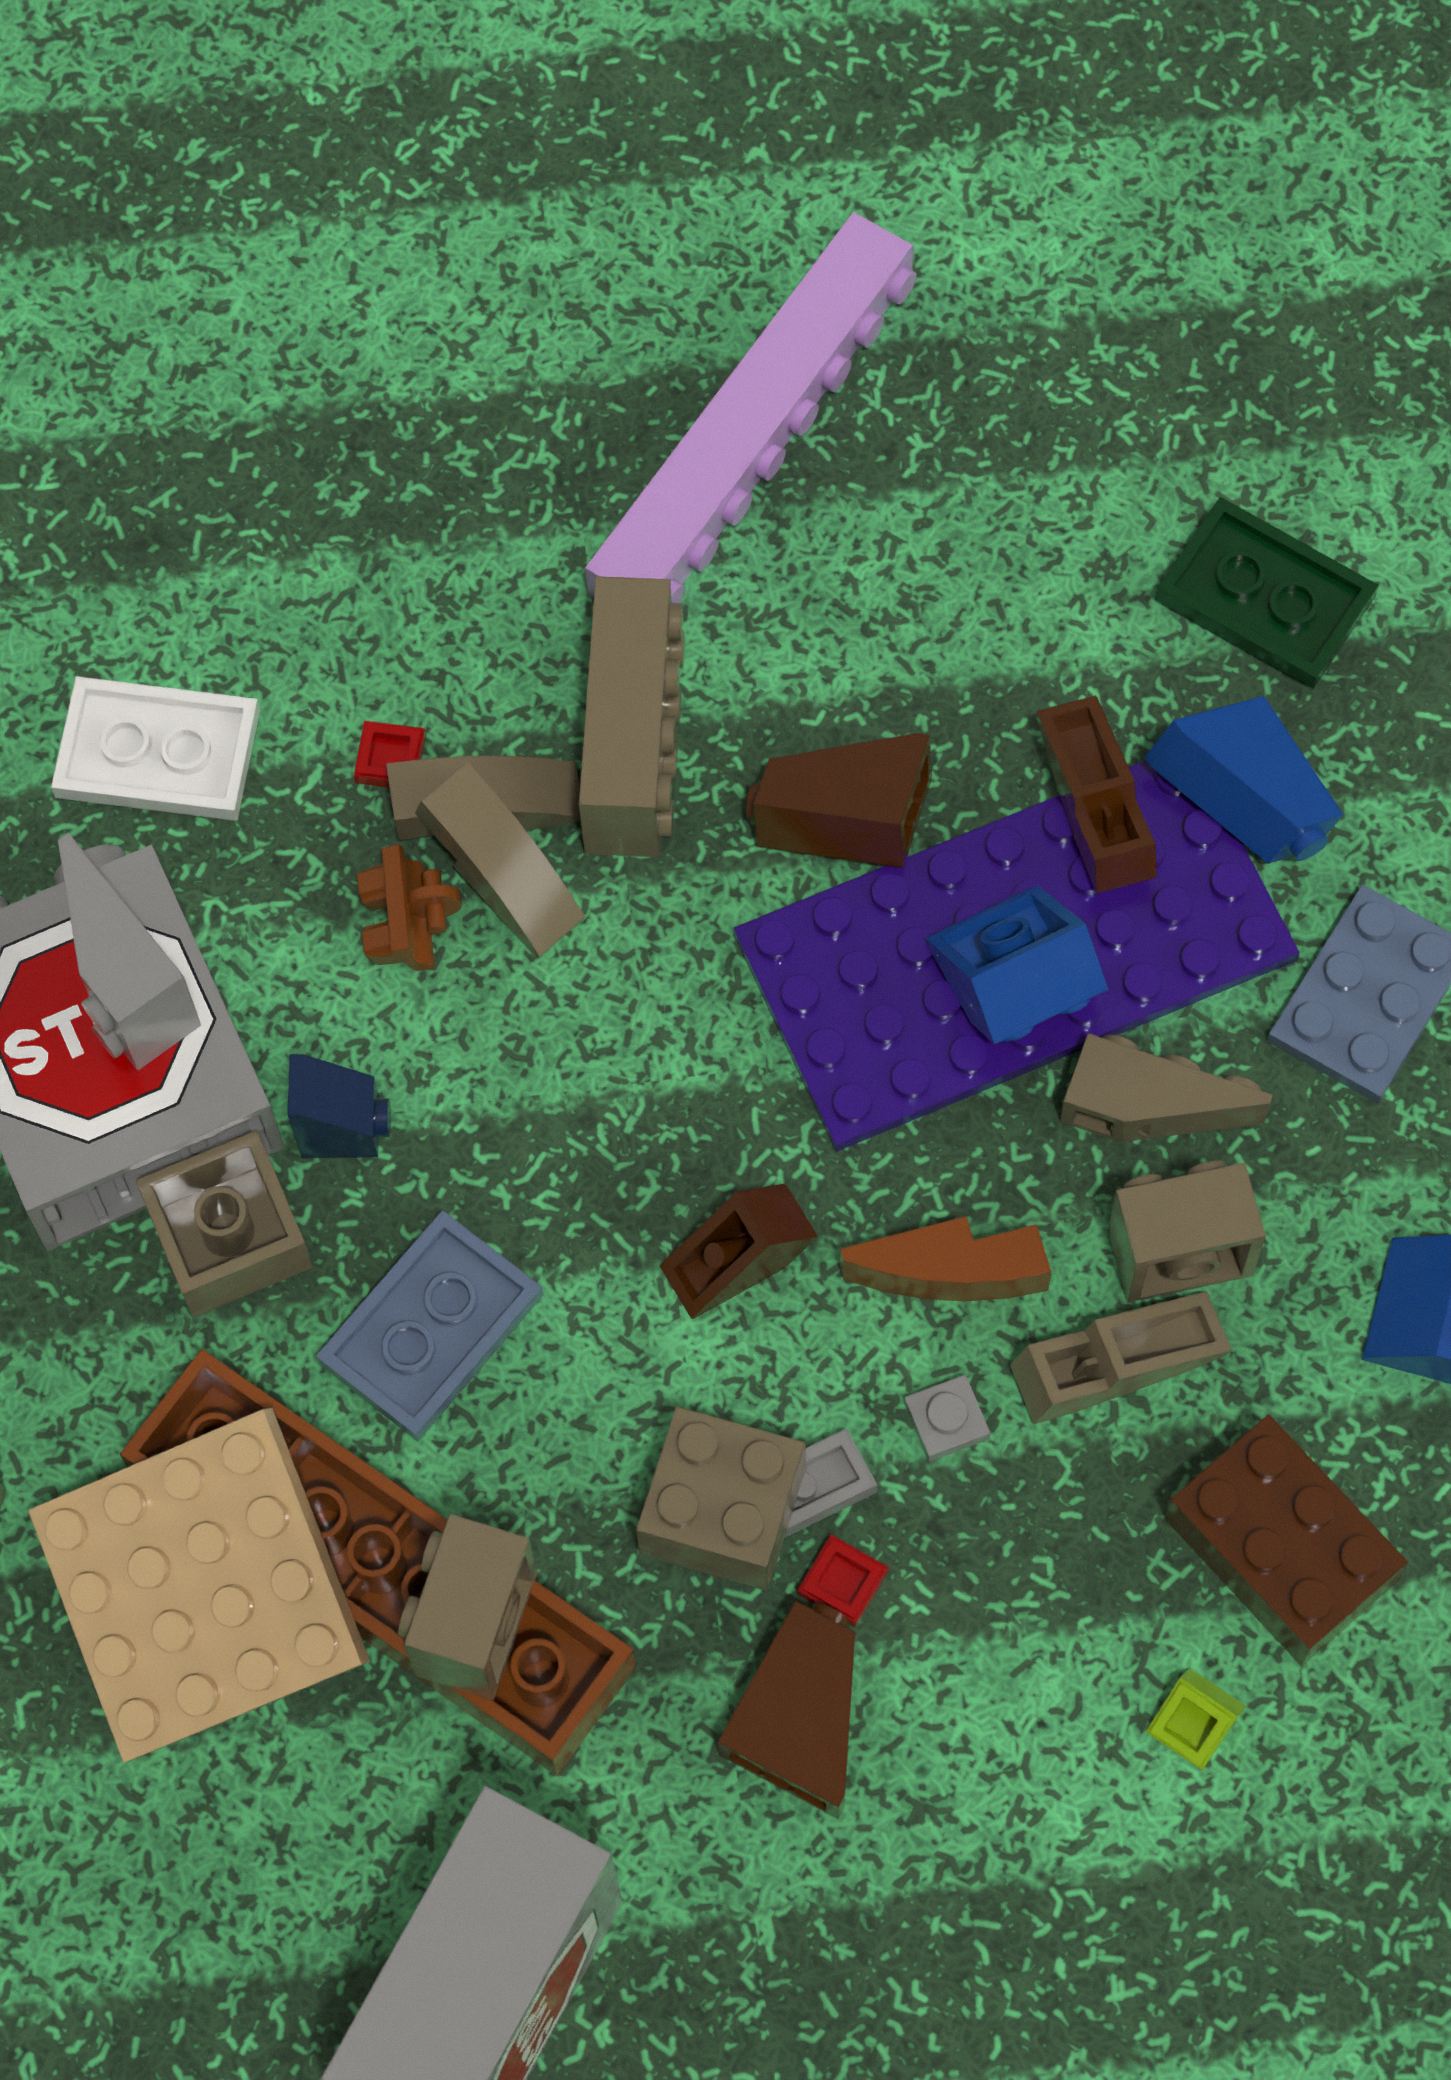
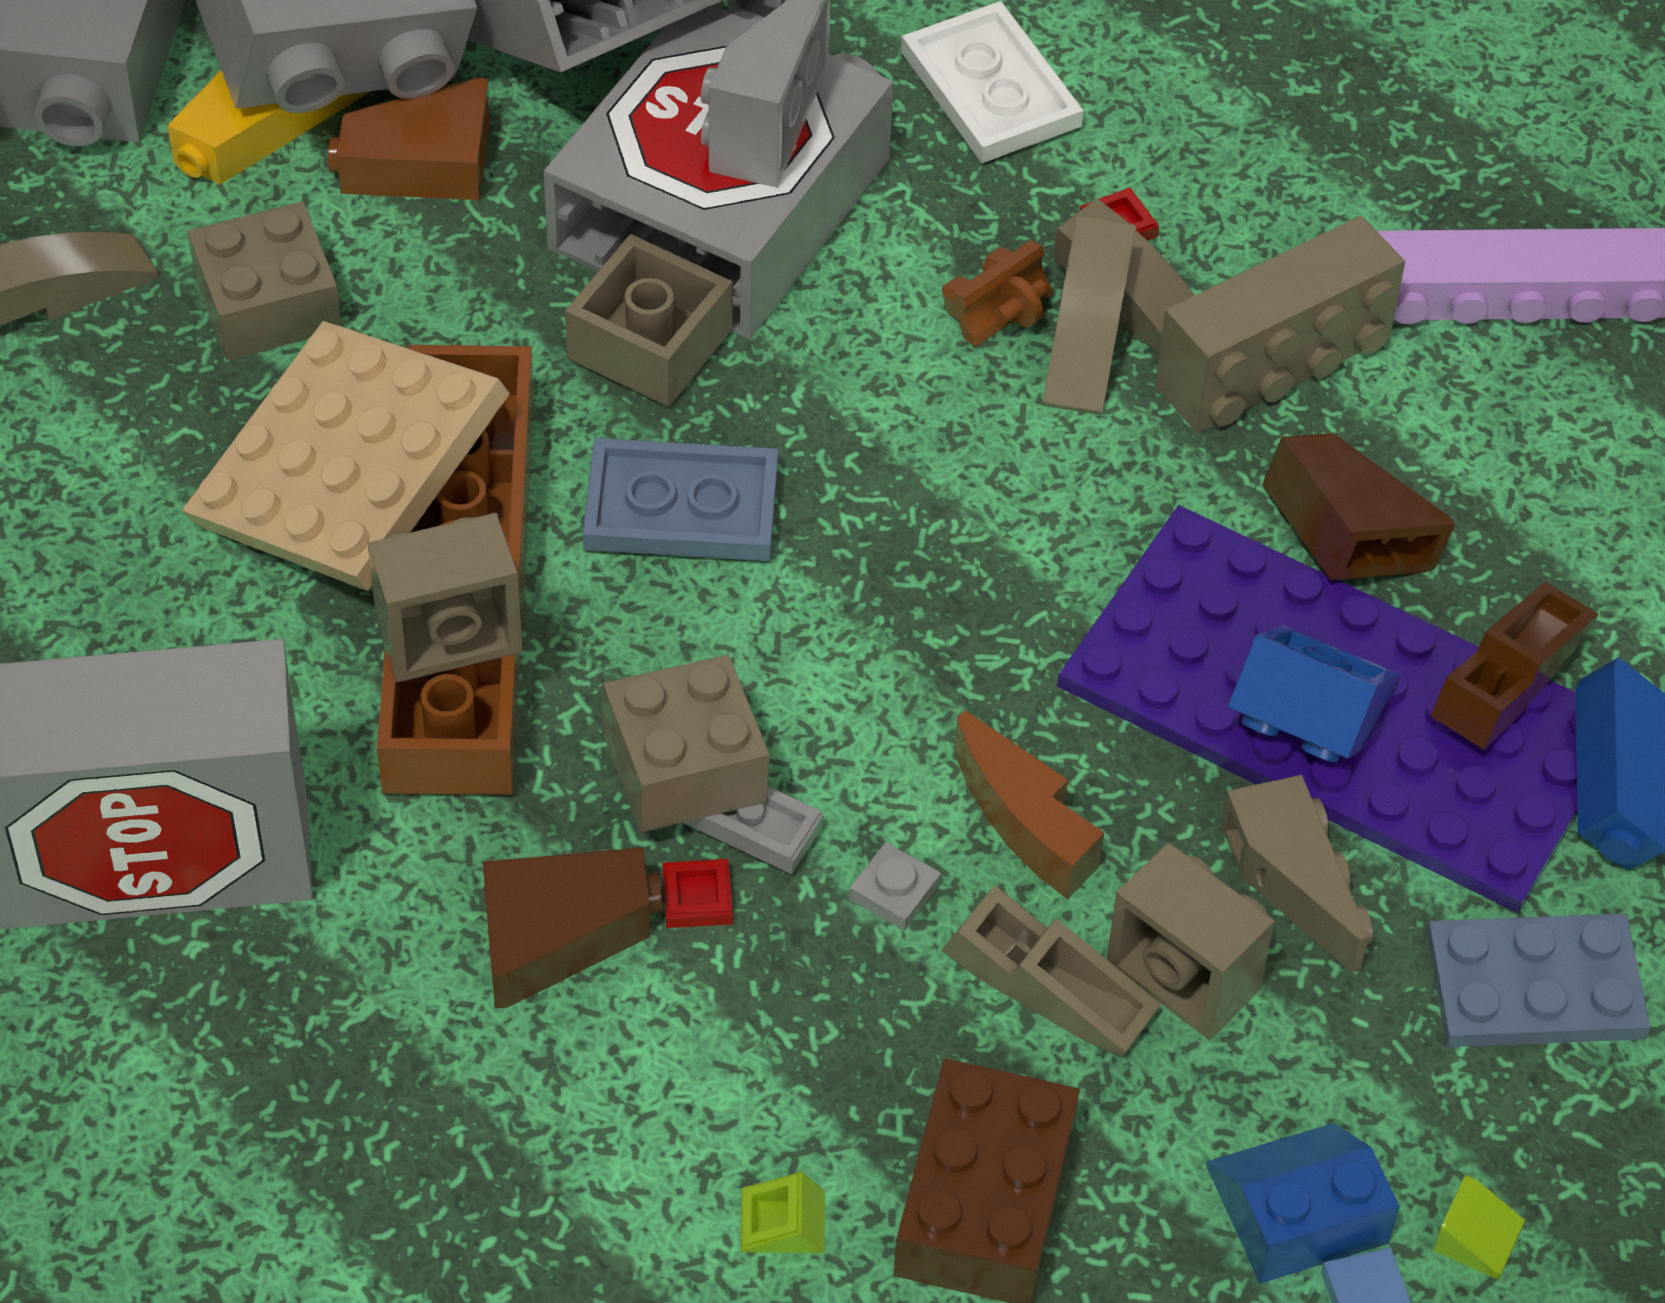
camera: 50 degrees right, 15 degrees down
(335, 1110) = (795, 327): dark blue slope -> none
(738, 1247) = (917, 655): reddish brown slope -> none

